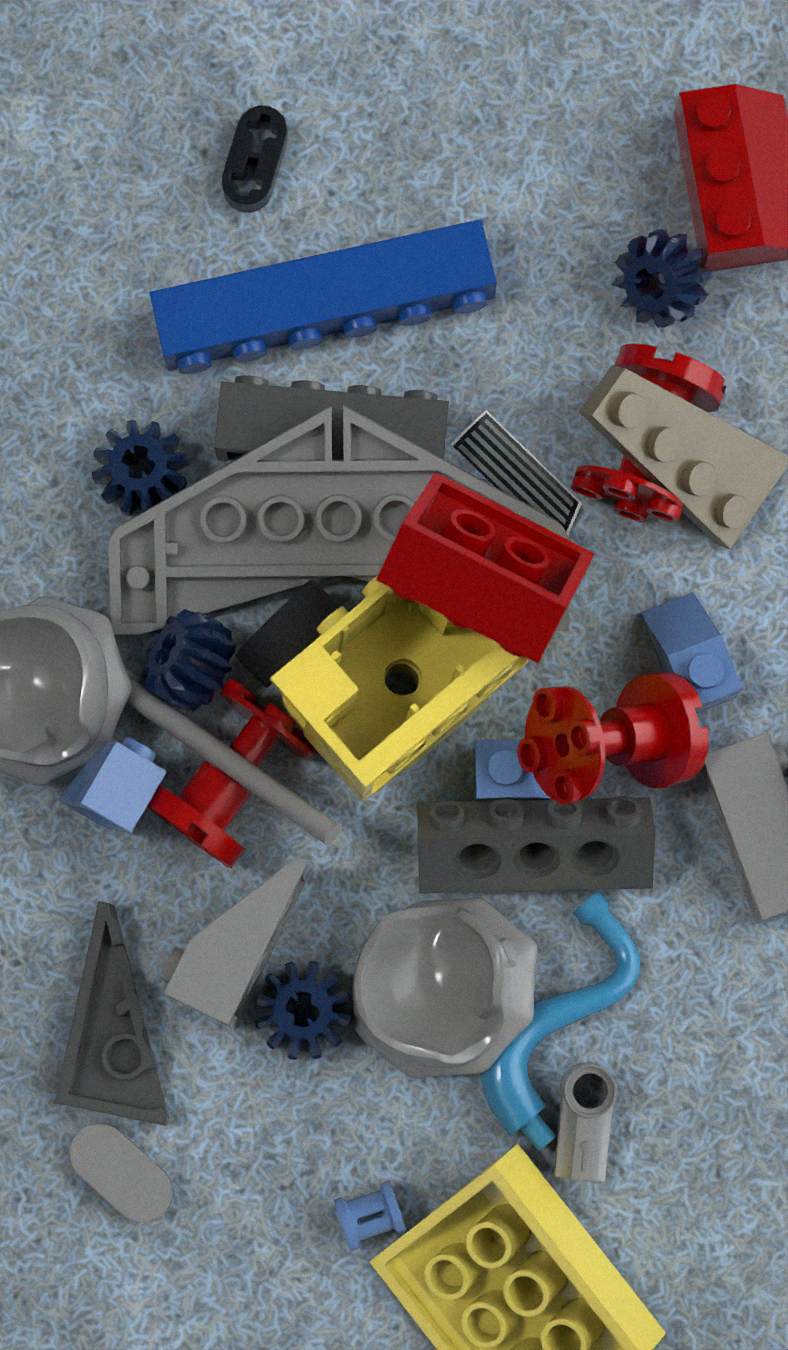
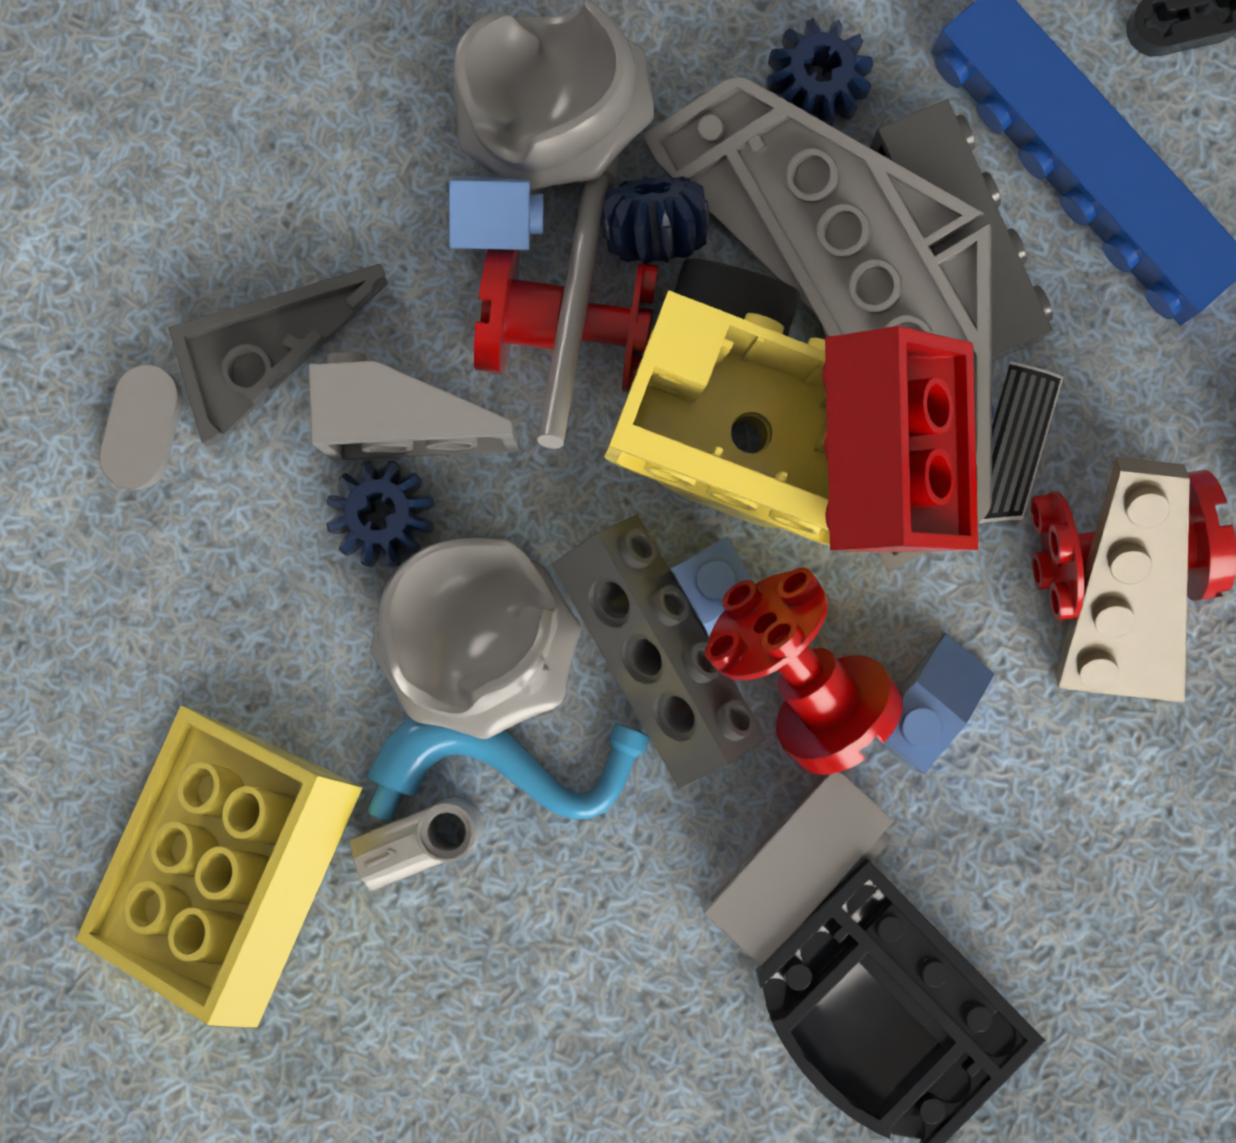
camera: 65 degrees right, 5 degrees up
(359, 1230) = (220, 682): medium blue bush -> none

